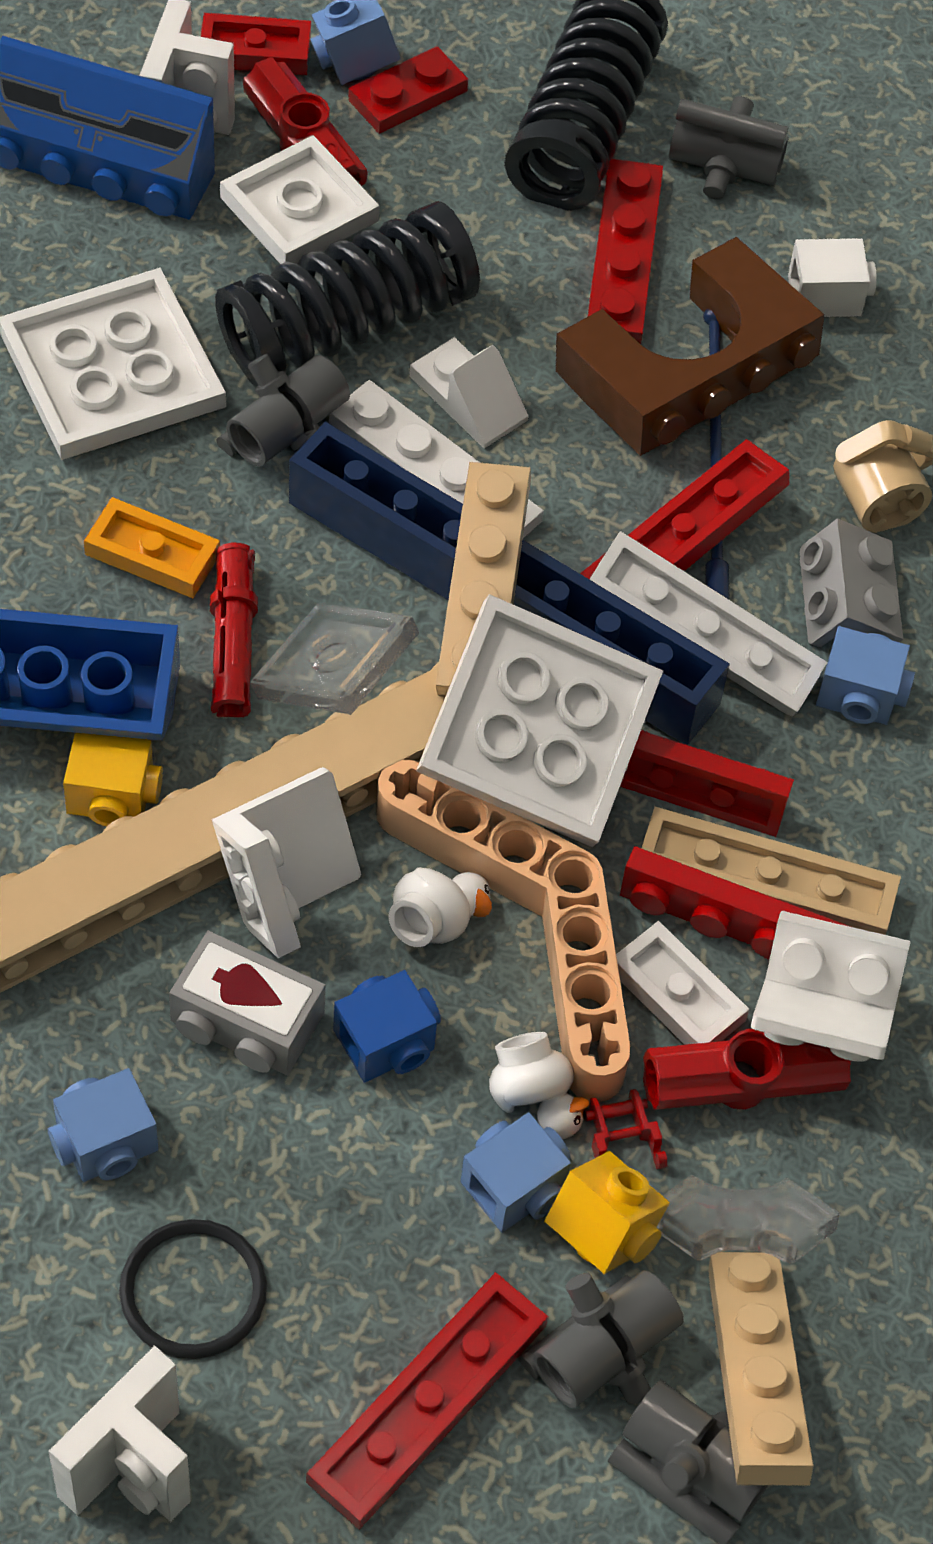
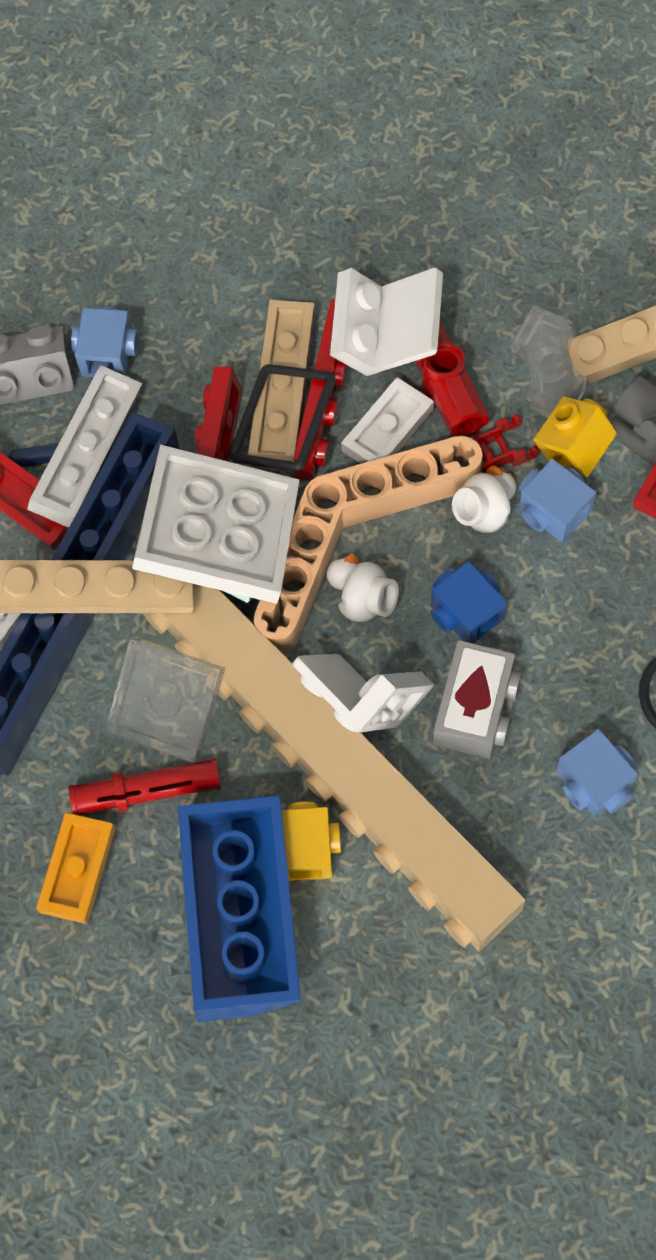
camera: 90 degrees left, 10 degrees up
(742, 903) = (234, 453): none -> black piece

